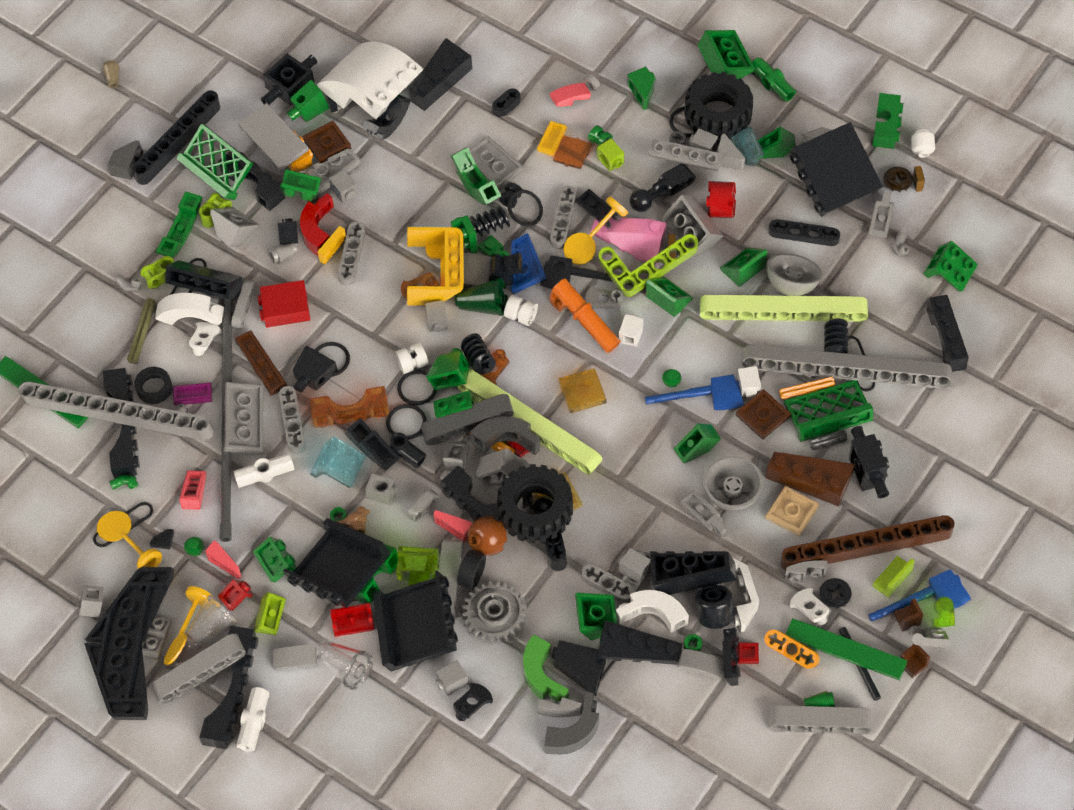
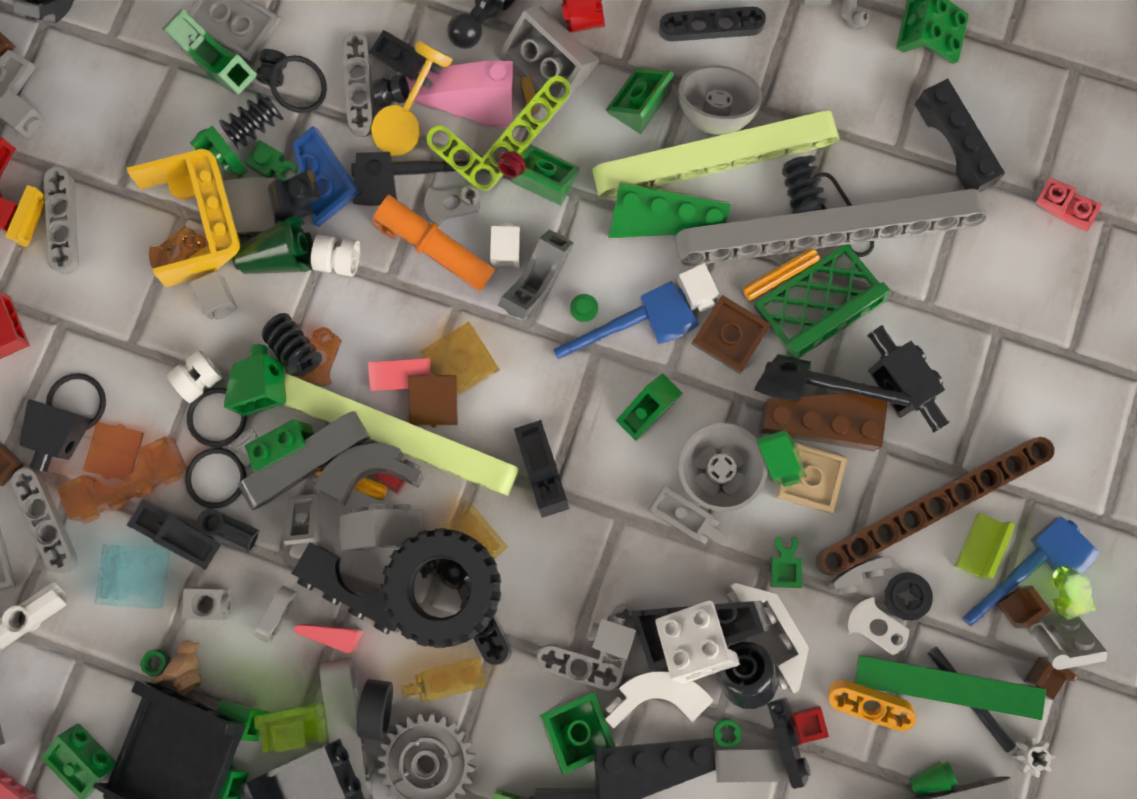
camera: 15 degrees left, 20 degrees up
(346, 390) = (113, 451): none -> clear orange piece
(428, 408) = (238, 447): none -> clear tile
(487, 536) = (381, 650): dark orange cylinder -> none
(520, 569) = (447, 680): none -> clear yellow hinge
(541, 387) = (394, 373): none -> coral slope
(559, 406) = (433, 399): none -> reddish brown piece
(583, 224) = (391, 90): none -> black wheel
(617, 463) = (541, 468): none -> black slope
(648, 278) = (511, 164): none -> dark red plate
(648, 351) = (538, 276): none -> dark grey arch
(685, 574) = (694, 643): none -> white bracket
(736, 332) = (658, 212): none -> green wing
(759, 556) = (785, 570): none -> green plate
(773, 485) = (782, 458): none -> green slope
(797, 444) = (788, 377): none -> black piece
(828, 440) = (834, 350): dark grey axle -> none
(889, 709) = (1042, 756): none -> white gear
(1010, 390) = (1067, 205): none -> coral slope

